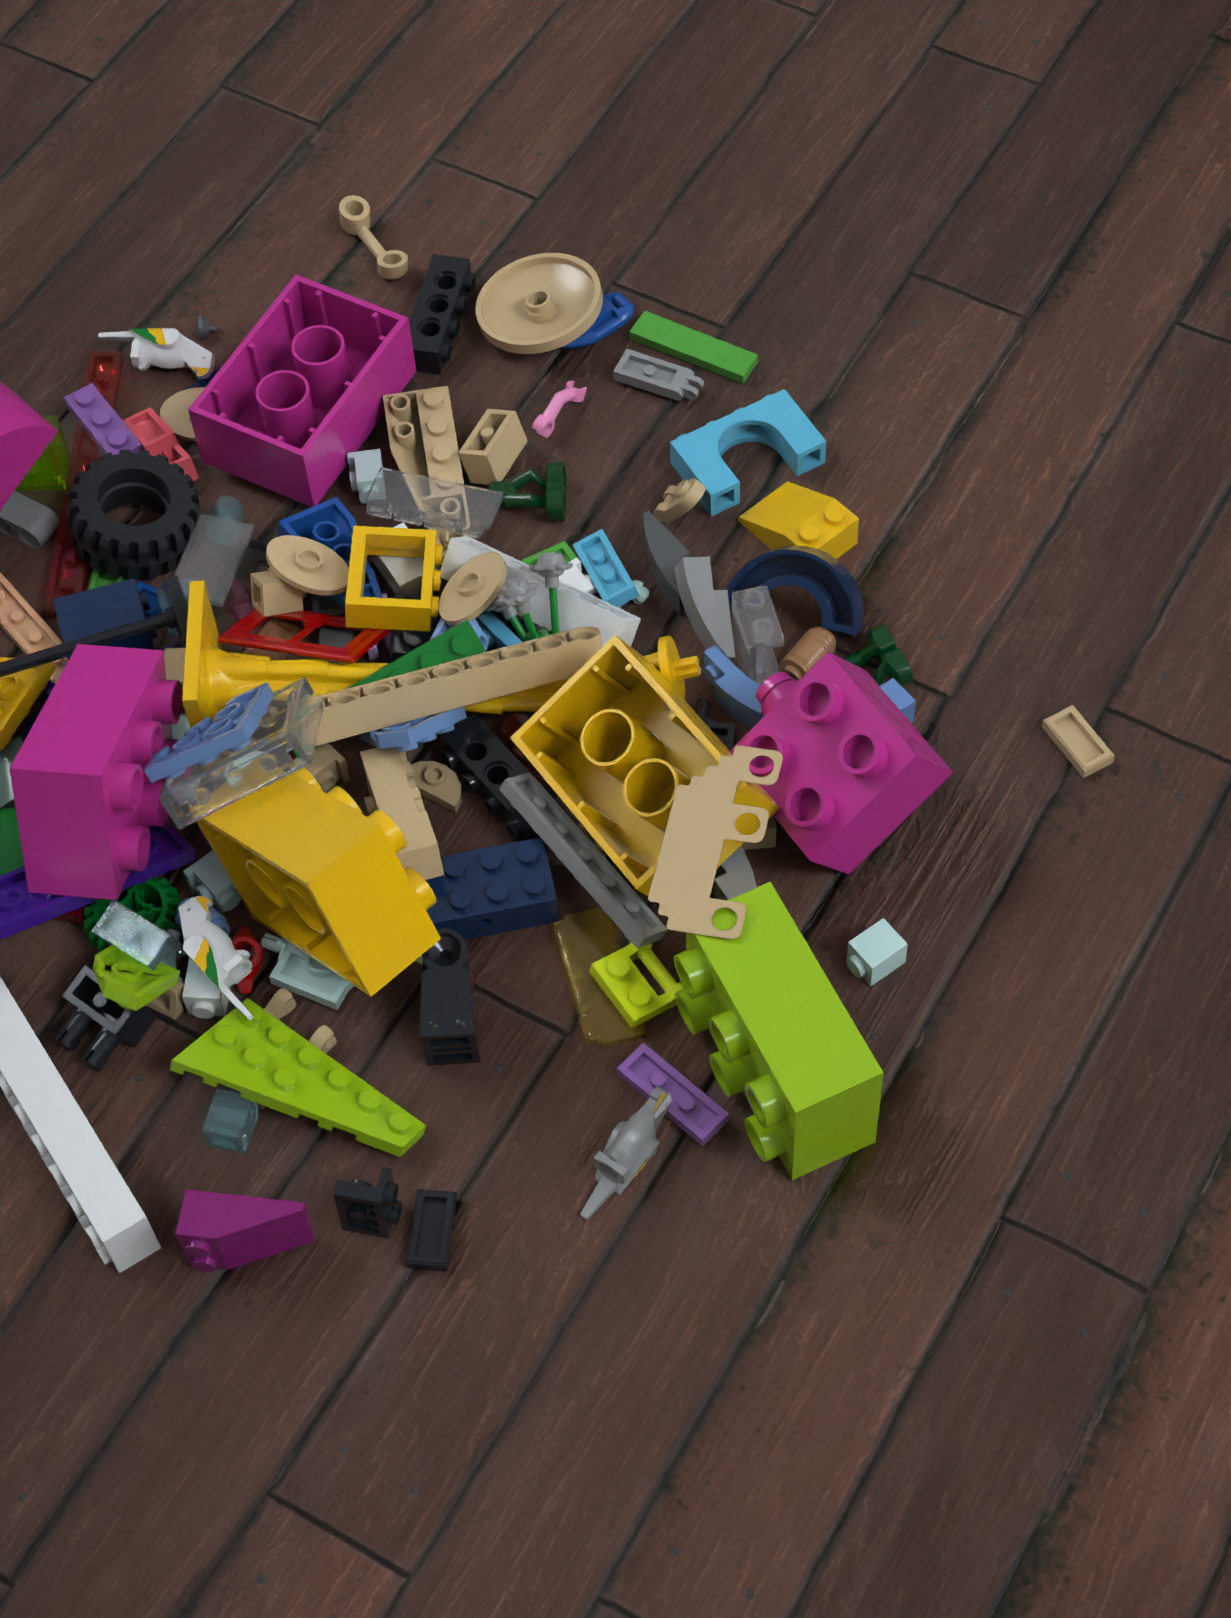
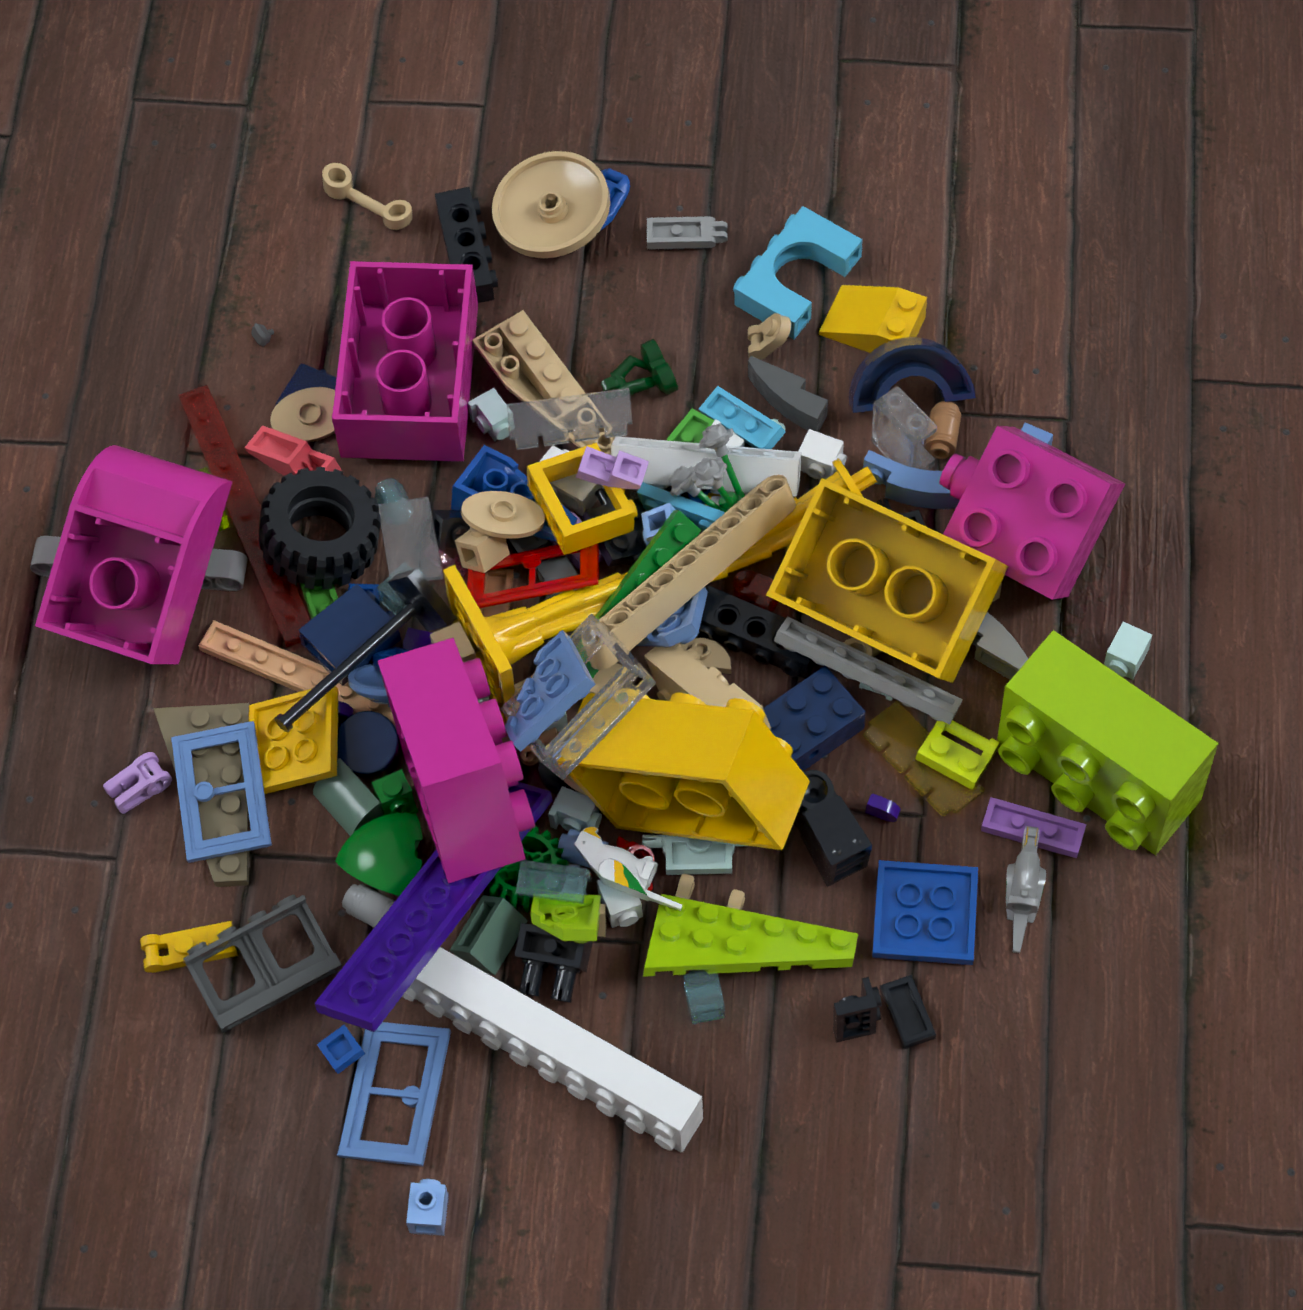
camera: 25 degrees left, 5 degrees up
(56, 966) = (489, 934): none -> sand green brick
(101, 421) = (236, 458): medium lavender plate -> none
(164, 349) = (246, 369): white animal -> none
(238, 1229) = (763, 1077): magenta slope -> none
(431, 560) = (611, 471): none -> lavender slope
(472, 588) = (661, 483): tan piece -> none
(492, 446) = (587, 348): tan brick -> none
(508, 1134) = (925, 912): none -> blue plate
(524, 1006) = (882, 808): none -> dark purple tile
(545, 422) = (619, 276): bright pink arm -> none
(666, 622) = (818, 453): none -> white brick
(693, 347) = (698, 194): bright green tile -> none
(694, 839) = (978, 620): tan piece -> none
(704, 606) = (845, 421): light grey slope -> none
(891, 659) = (999, 399): dark green piece -> none
(1078, 741) = (1187, 416): tan tile -> none

